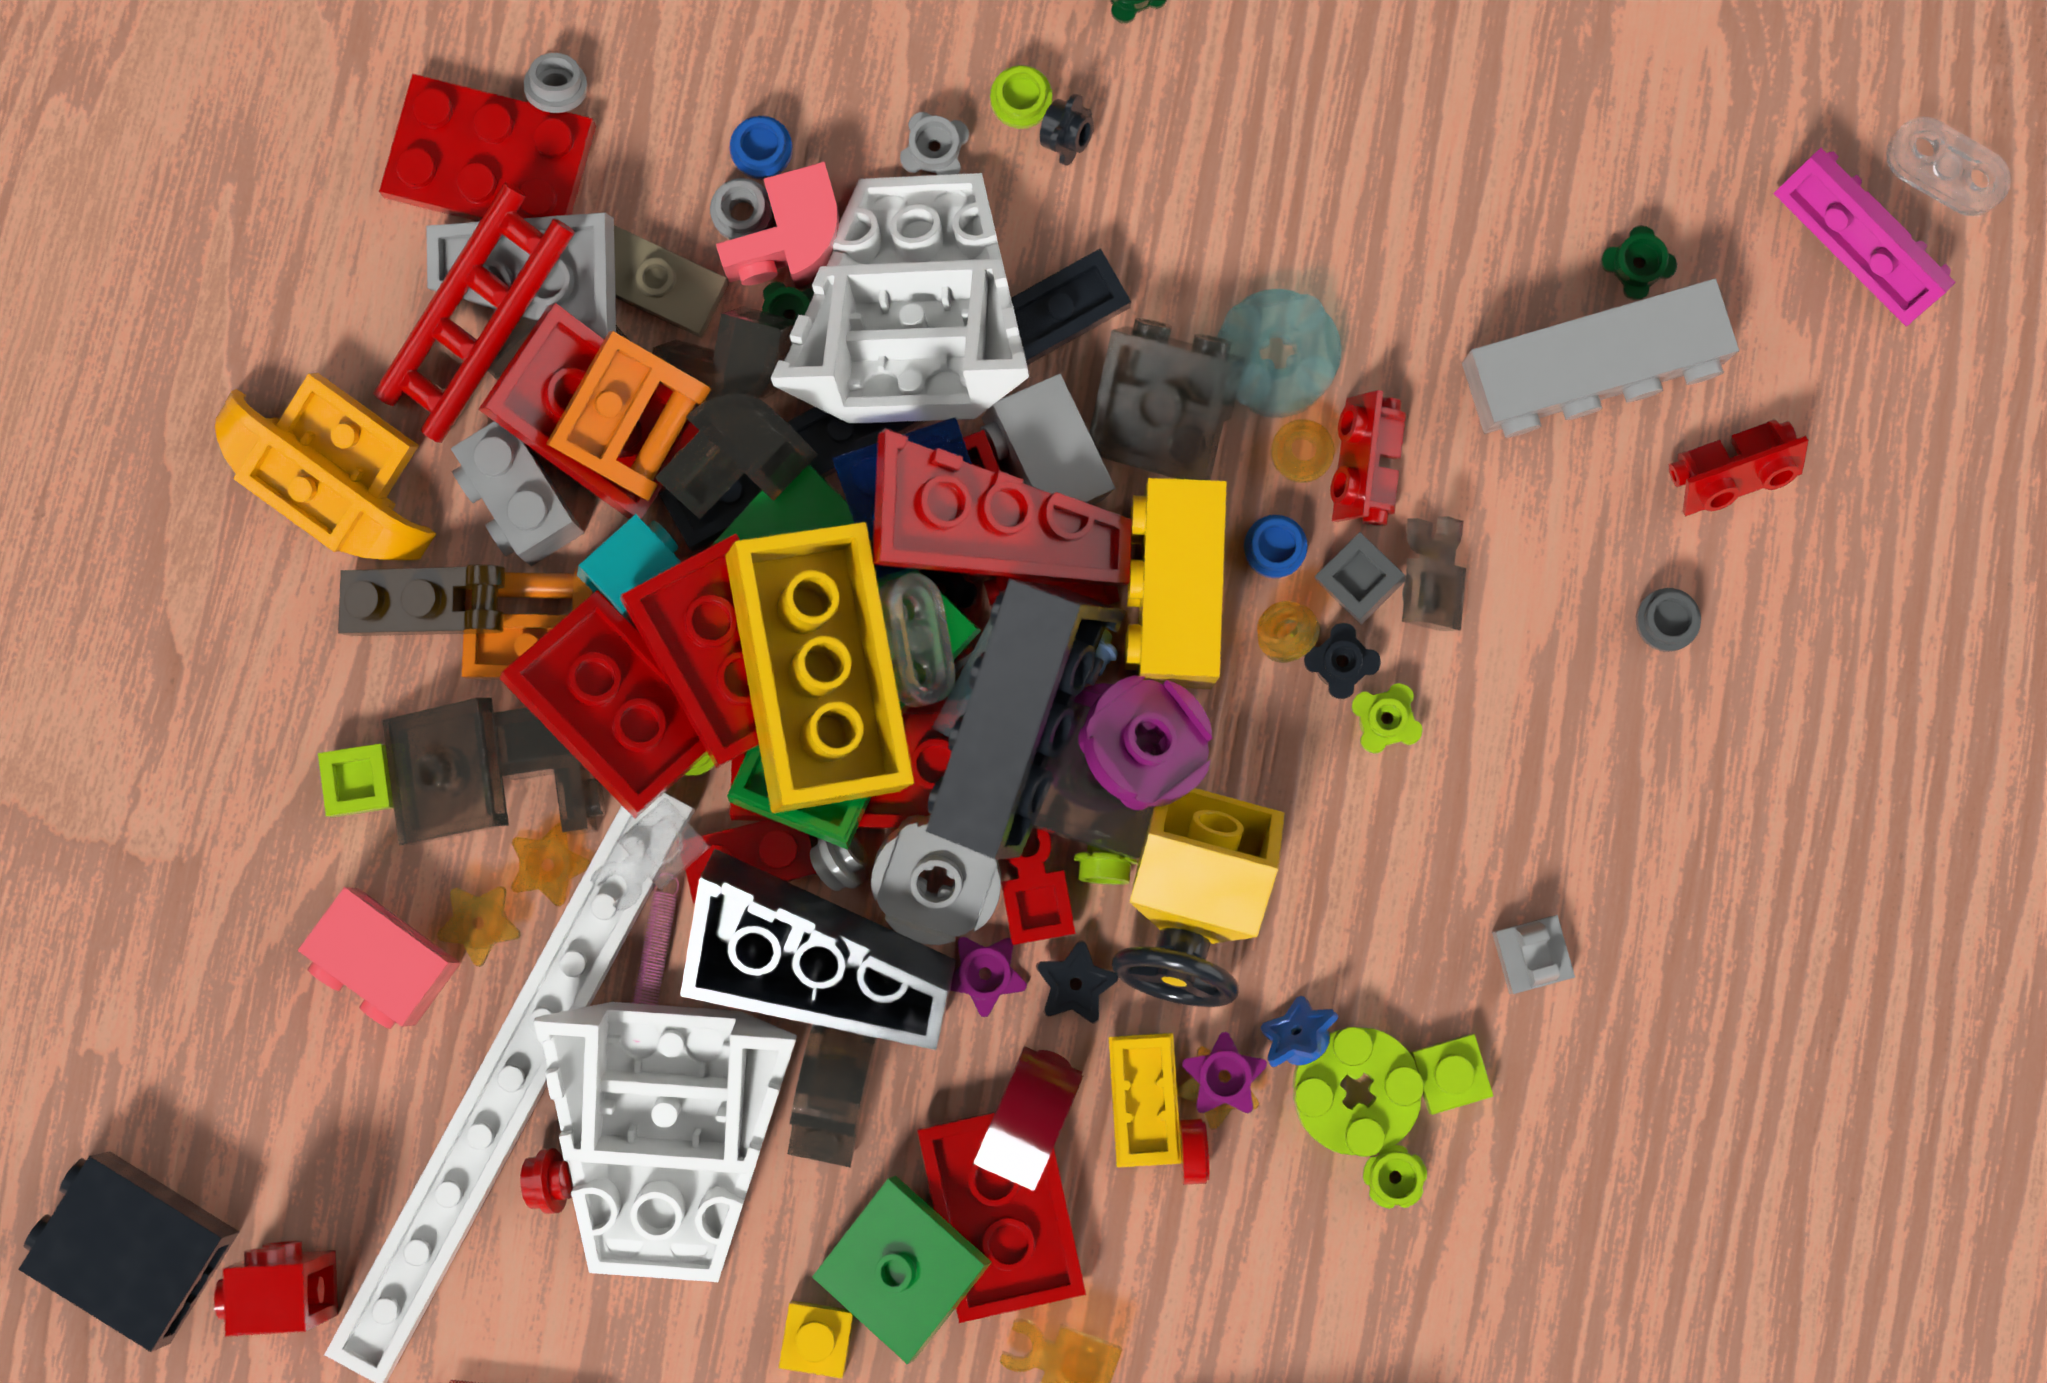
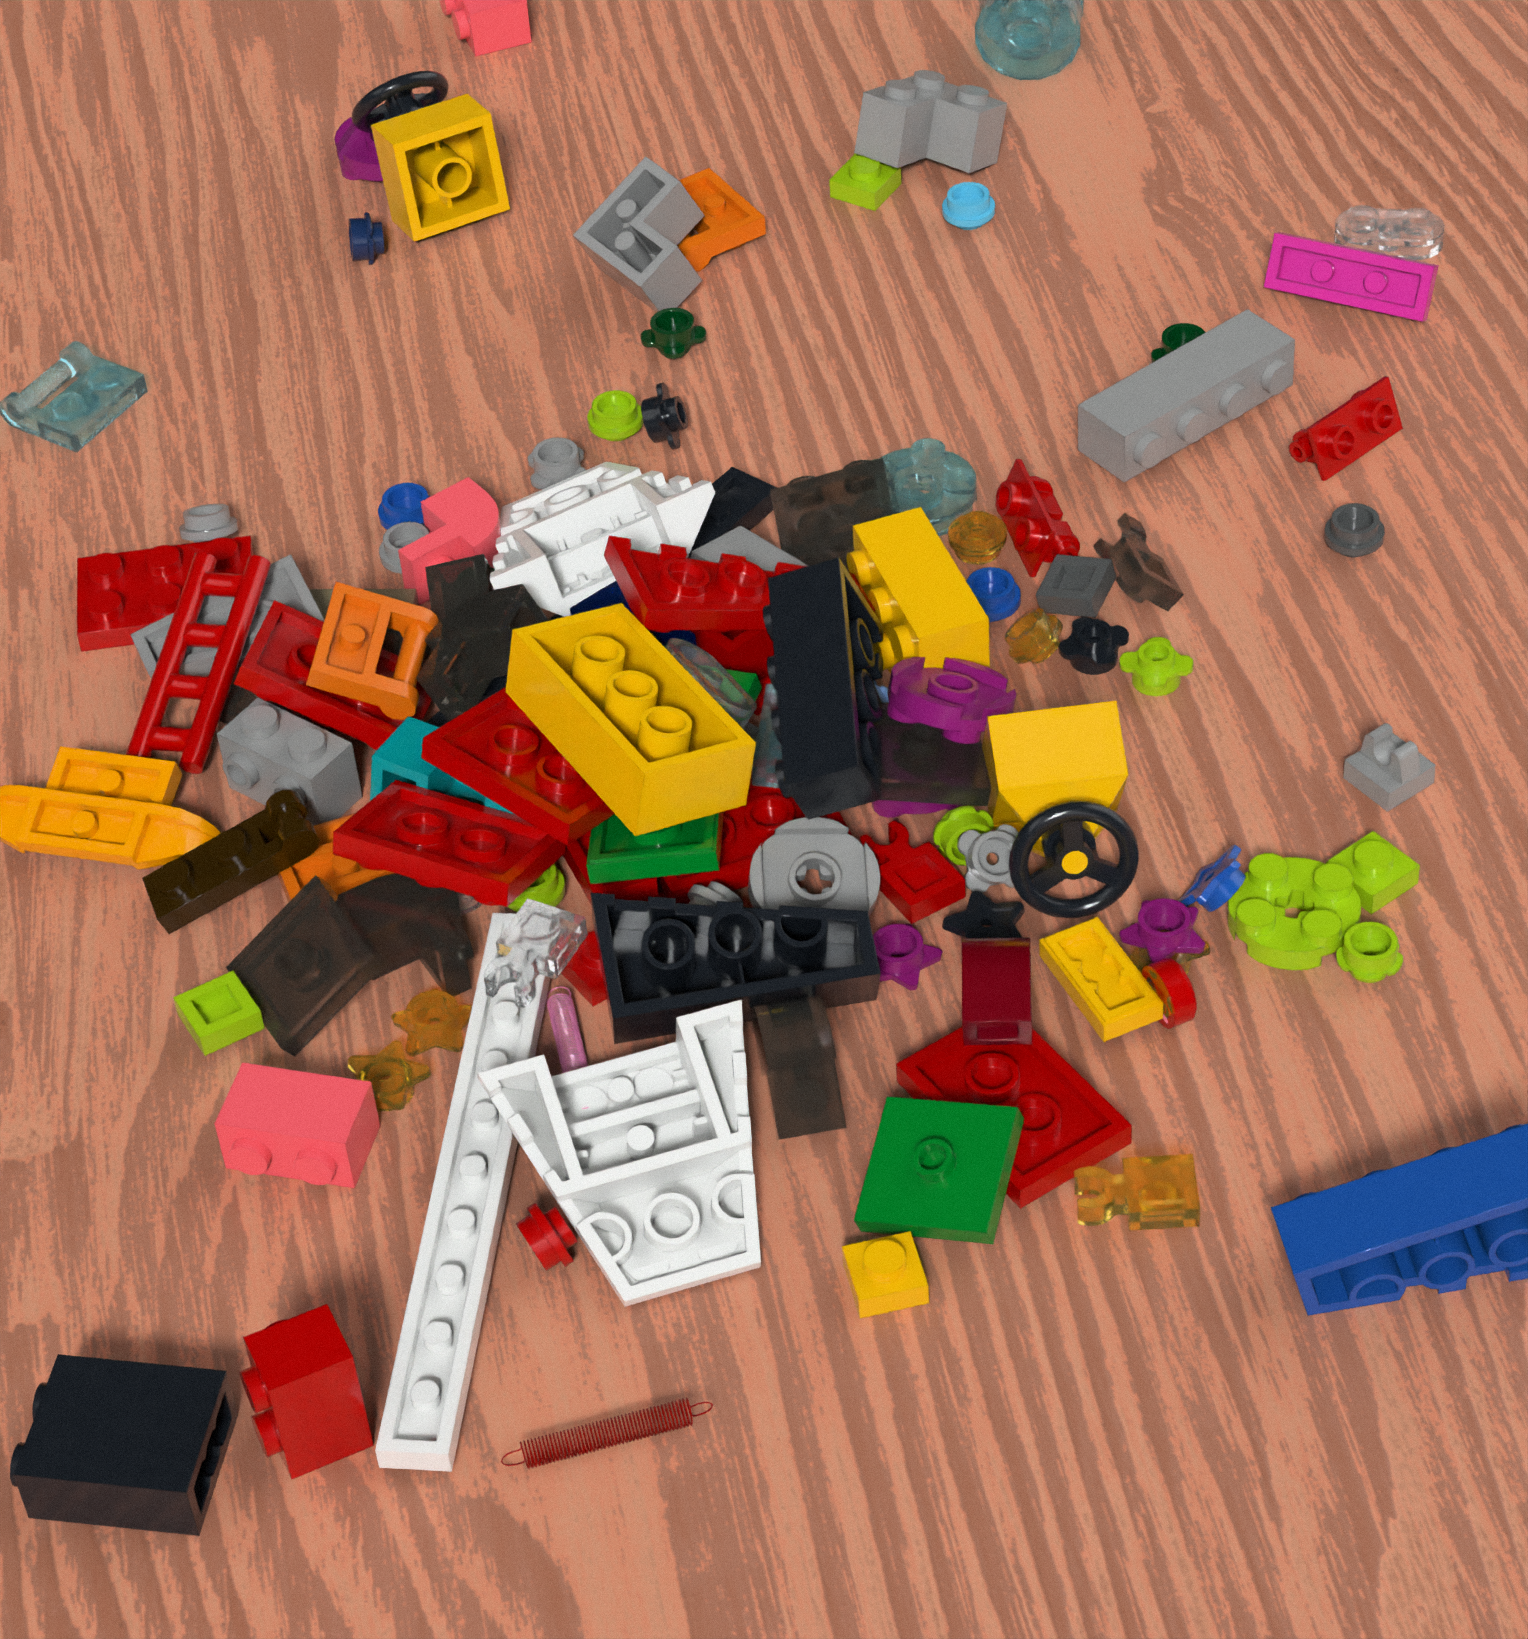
camera: 20 degrees left, 40 degrees down
(1110, 921) = (977, 847): none -> light grey plate

